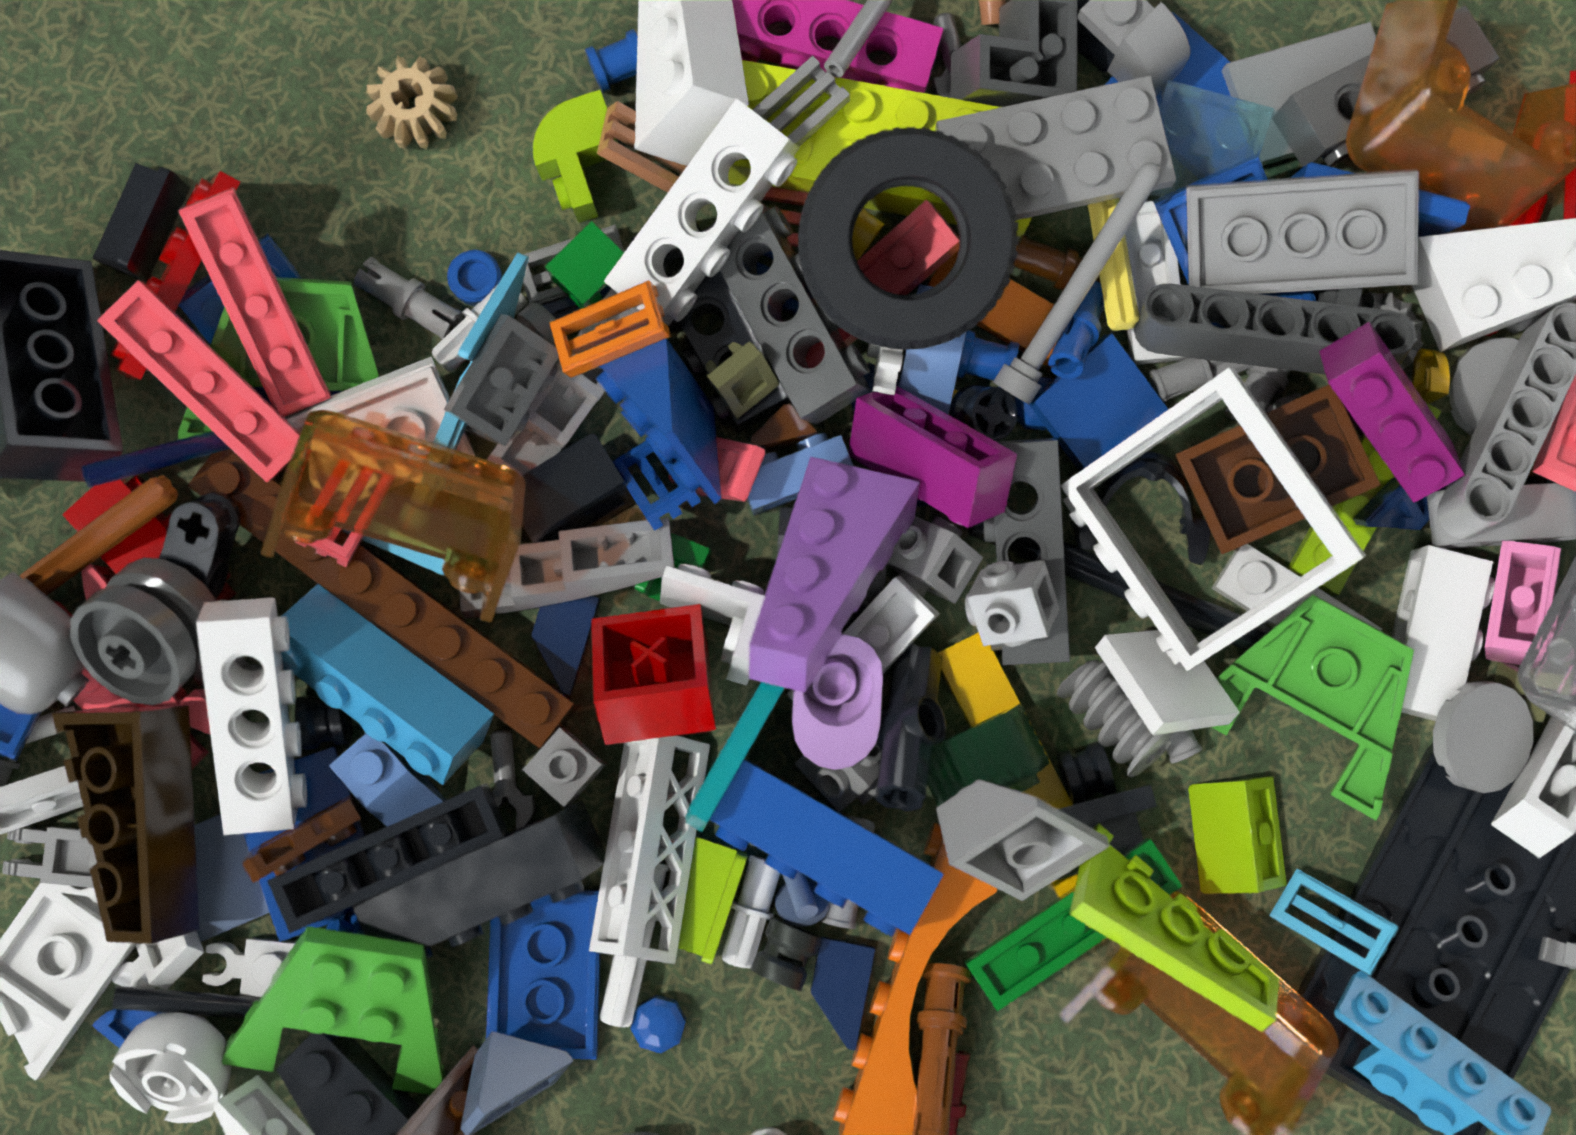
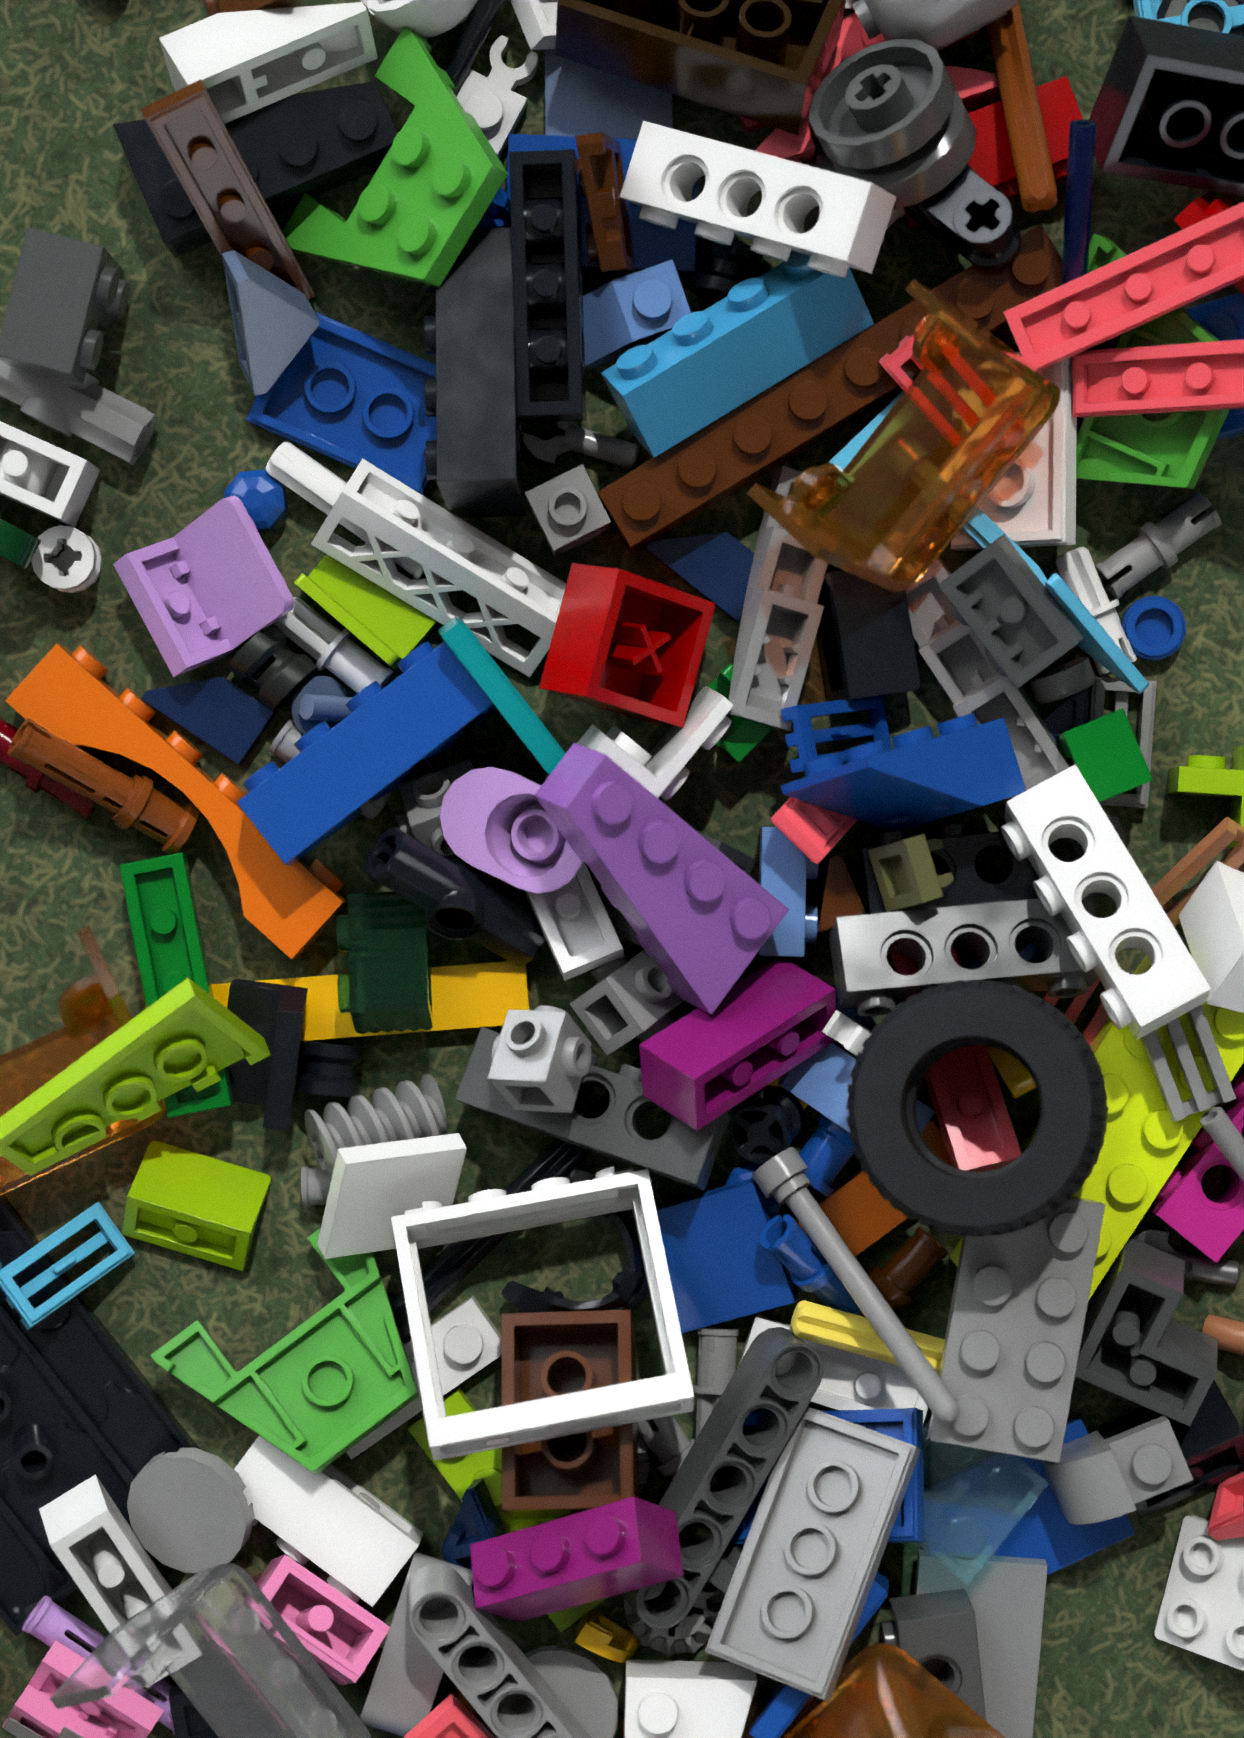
camera: 115 degrees right, 5 degrees up
(617, 347) = (992, 751): orange tile -> none
(744, 1035) = (206, 587): none -> lavender bracket
(1013, 838) = (290, 952): light grey slope -> none

